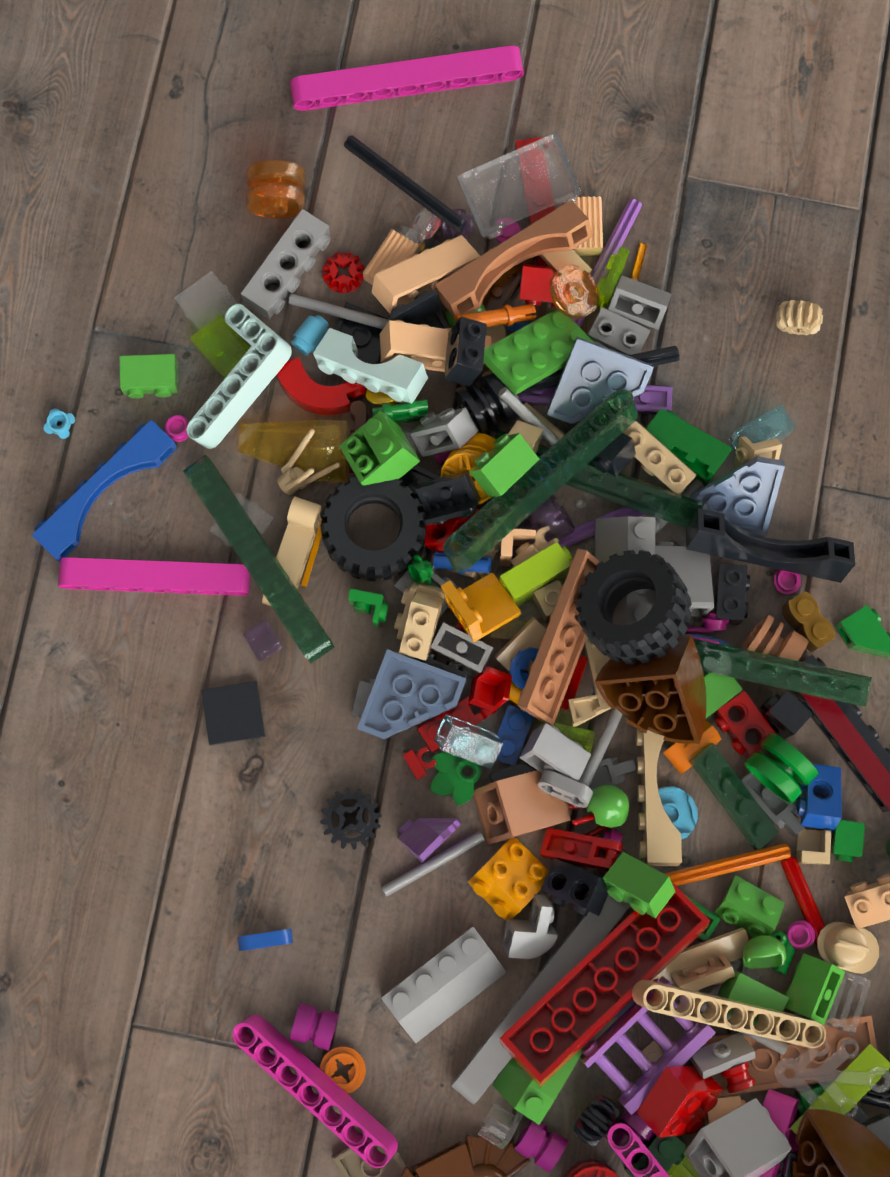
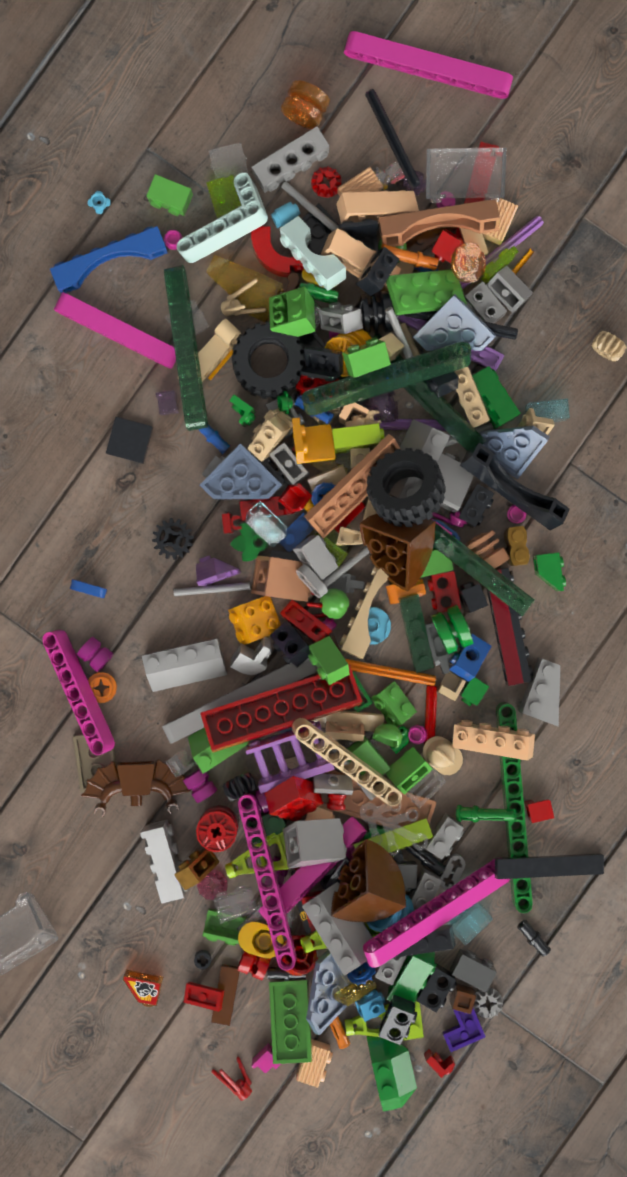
camera: 30 degrees right, 10 degrees up
(347, 660) = (214, 437): none -> blue pin

